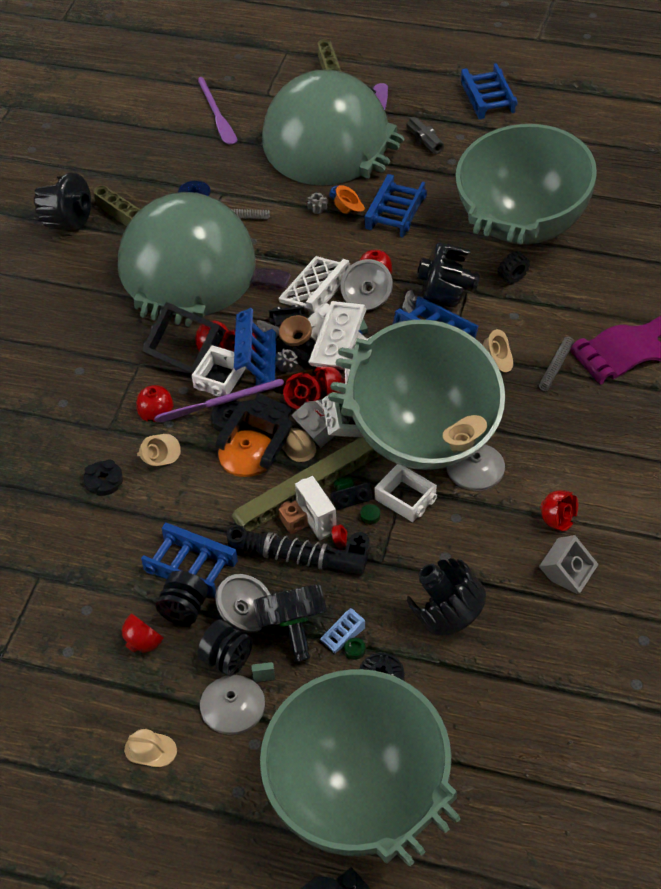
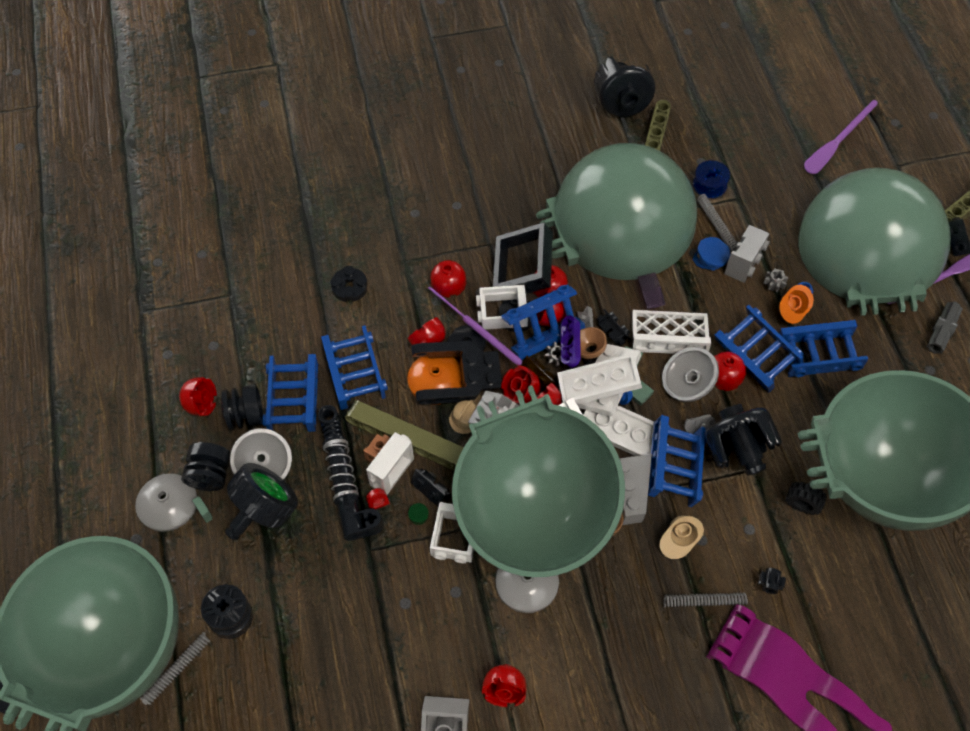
camera: 60 degrees right, 10 degrees up
(150, 748) = (99, 462): tan piece -> none
(159, 450) = (394, 309): tan piece -> none
(195, 520) = (340, 378): none -> blue fence
(205, 434) = (431, 332): none -> red cylinder
(265, 229) = (711, 254): none -> blue hat
(279, 341) = (570, 353): none -> dark purple beam
(282, 207) = (747, 254): none -> light grey wedge
(343, 483) = (438, 474): dark green tile -> none
(354, 648) = (264, 572): dark green tile -> none
(356, 626) = (286, 564): light blue slope -> none
(393, 249) = (753, 366): none -> blue fence
(454, 597) = (328, 631): black piece -> none
(464, 433) = (521, 549): tan piece -> none
(565, 317) = (772, 581): none -> black gear

